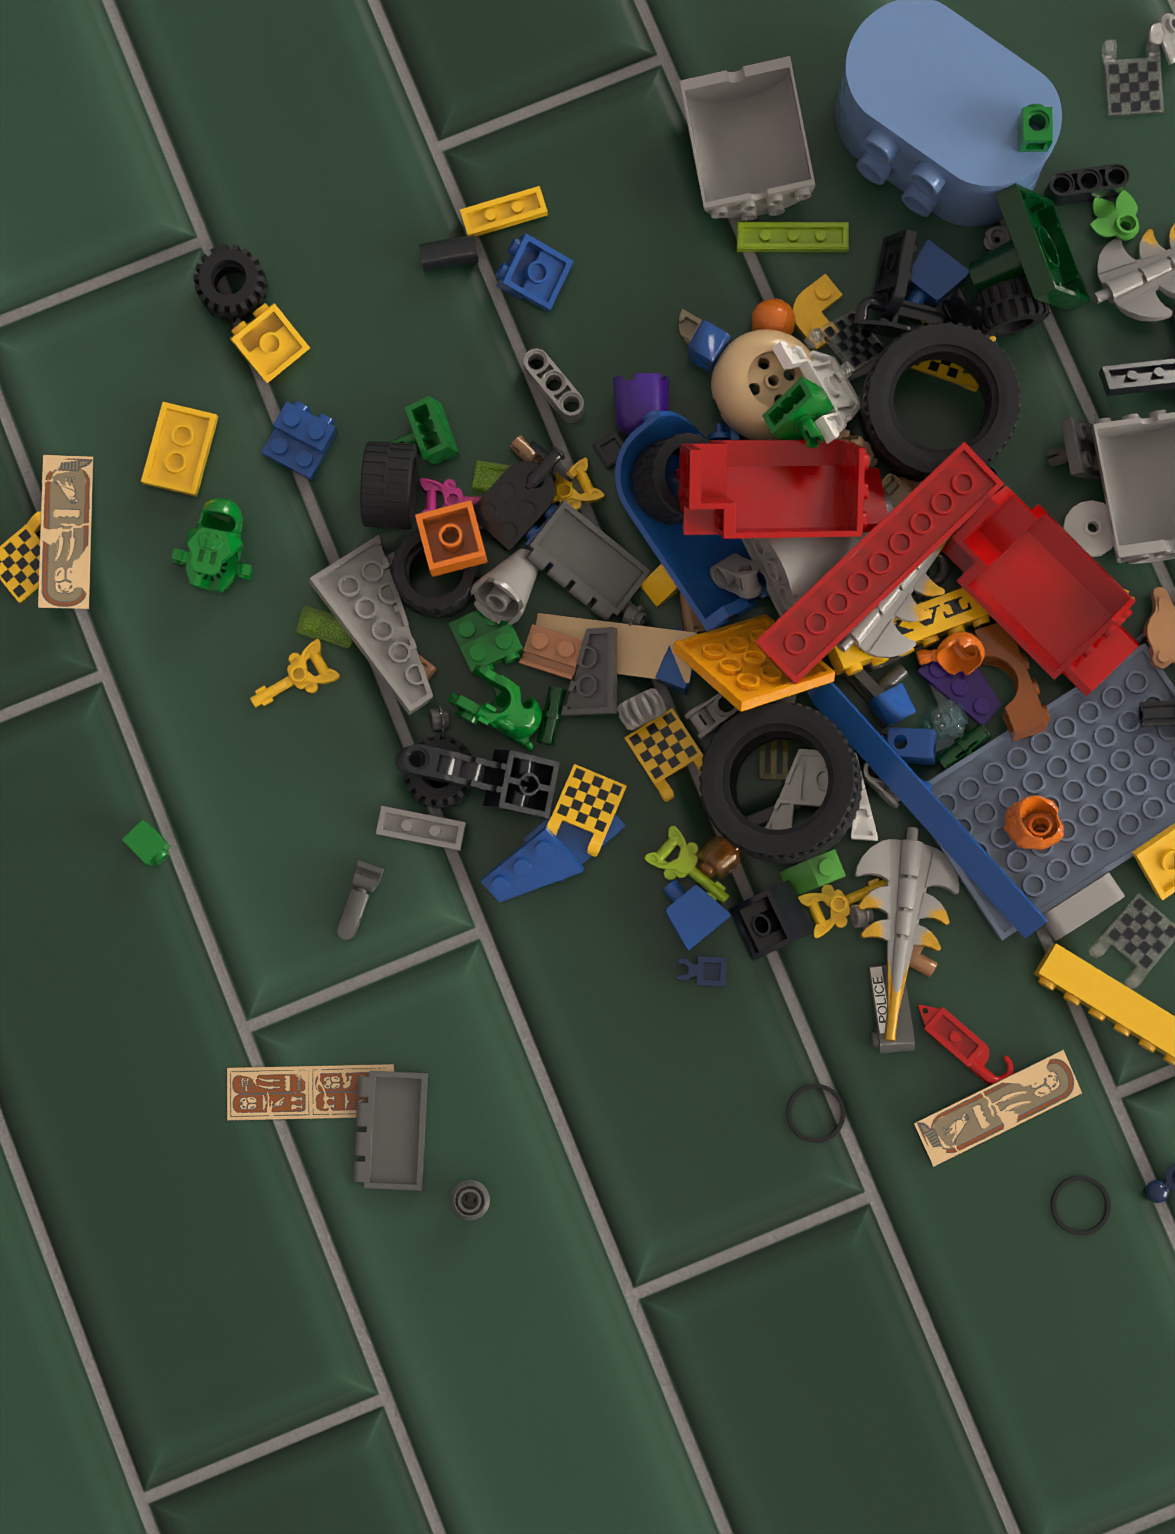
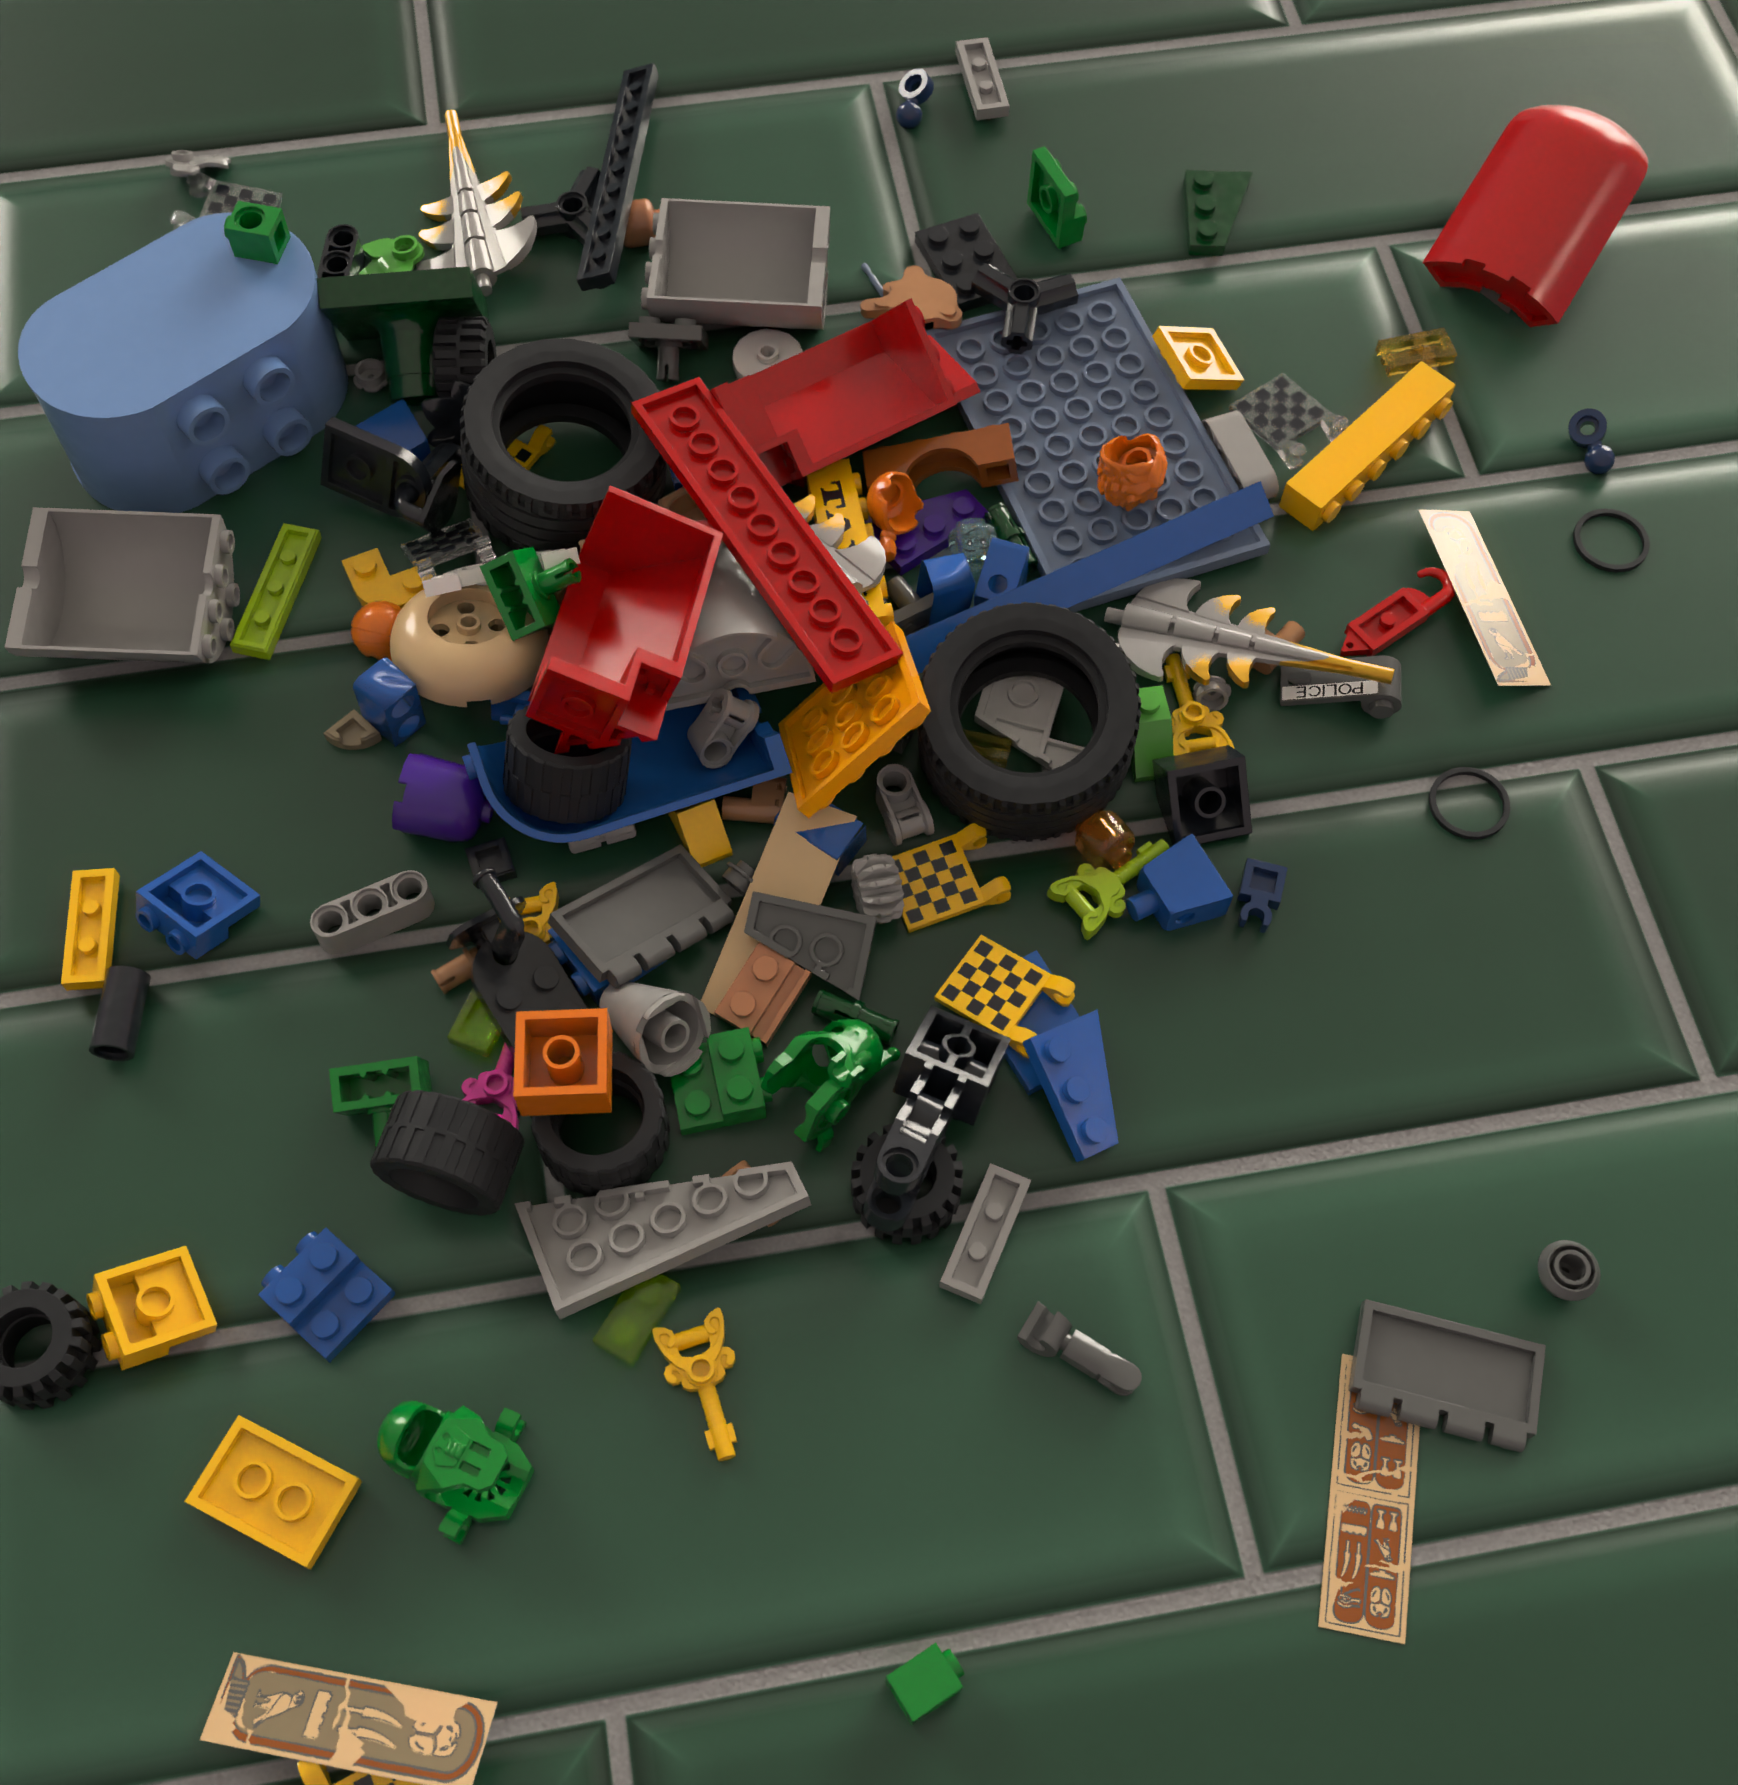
camera: 85 degrees left, 20 degrees down
(438, 719) = (823, 1174): dark grey plate -> none

